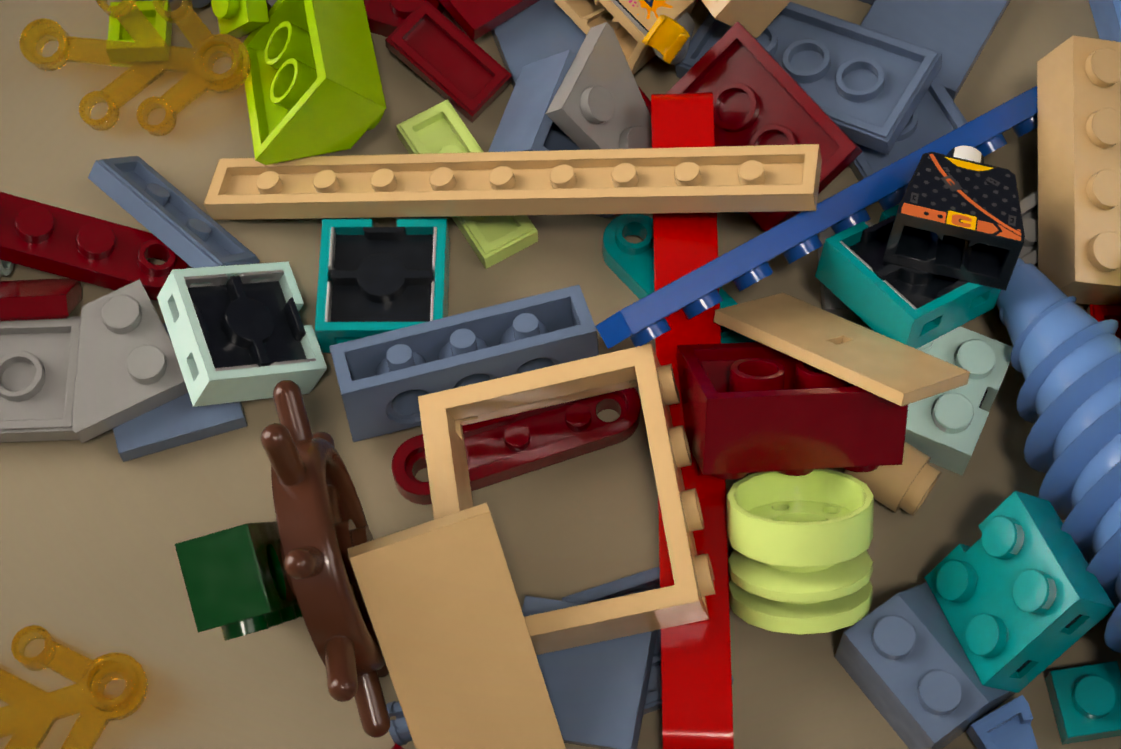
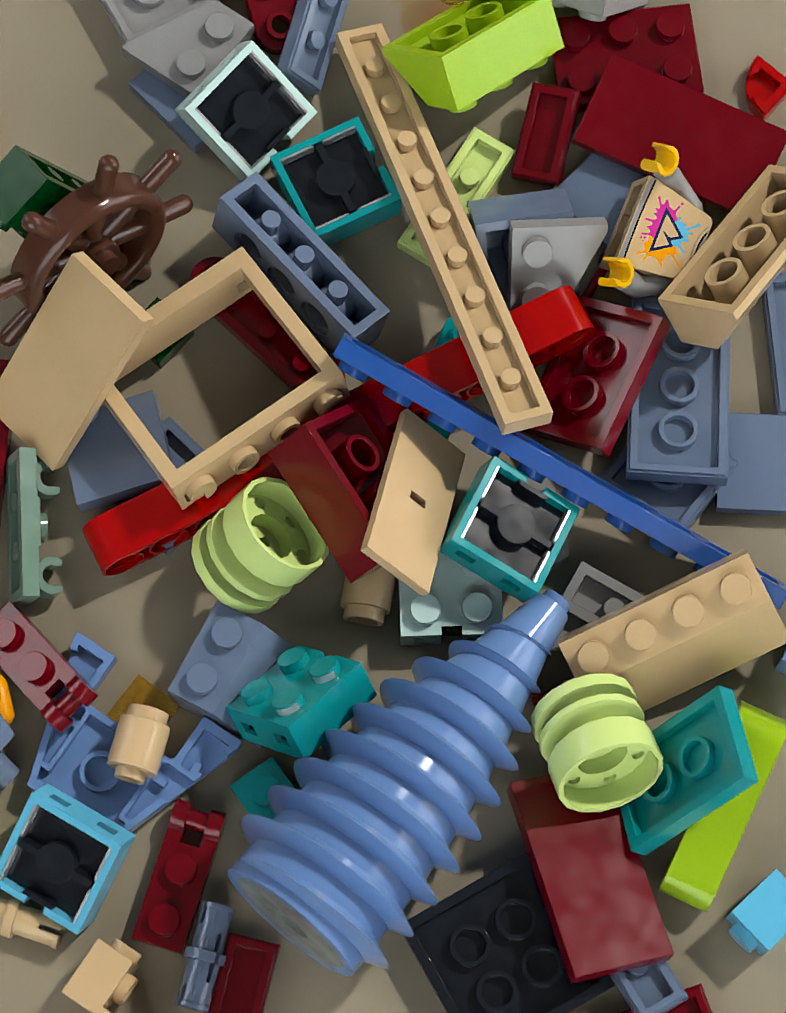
camera: 60 degrees right, 10 degrees up
(959, 220) = (555, 534): black torso -> none

